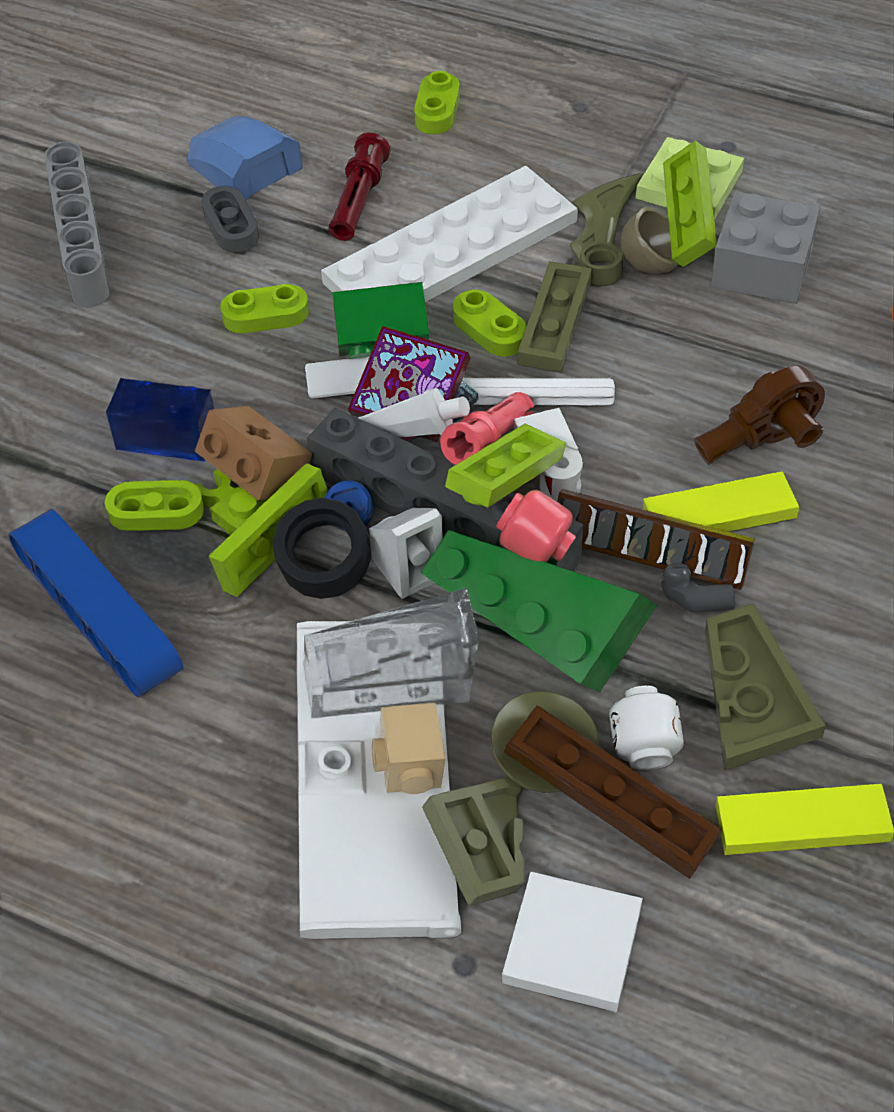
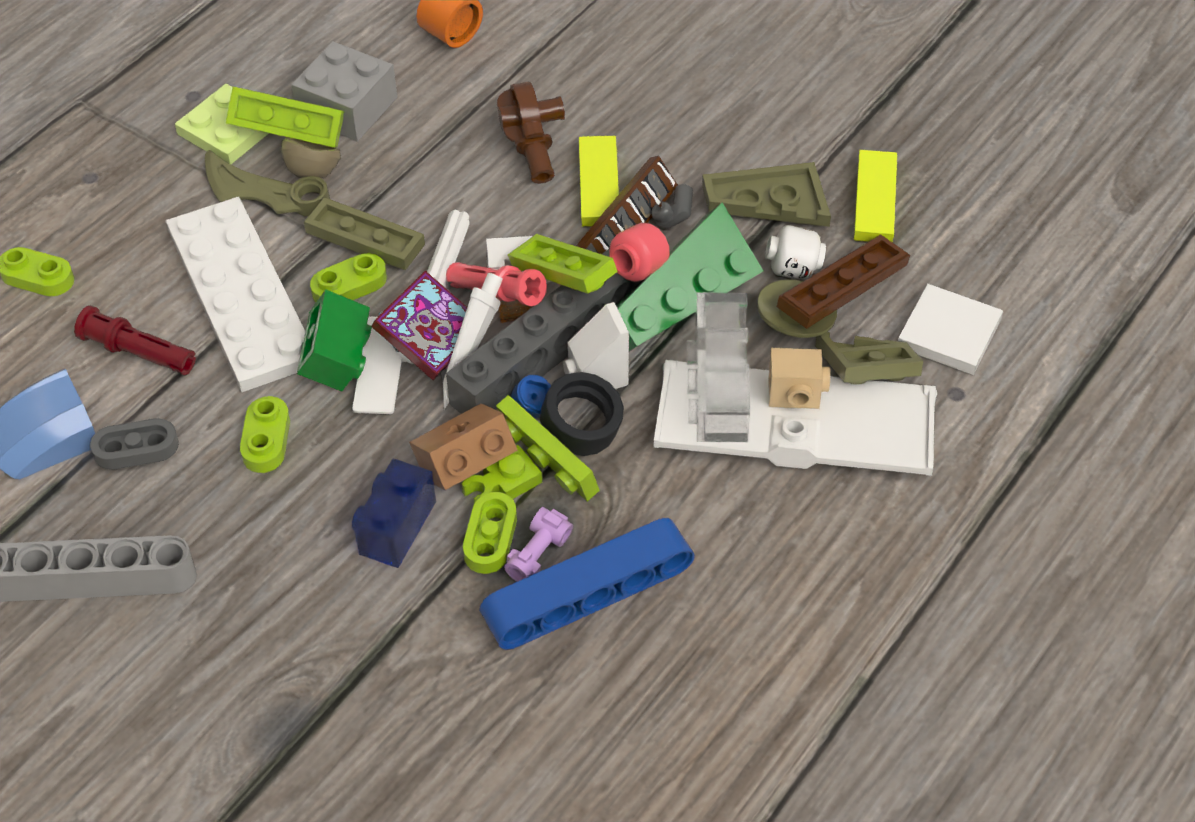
camera: 80 degrees left, 0 degrees up
(165, 558) = (548, 528): none -> lavender bar

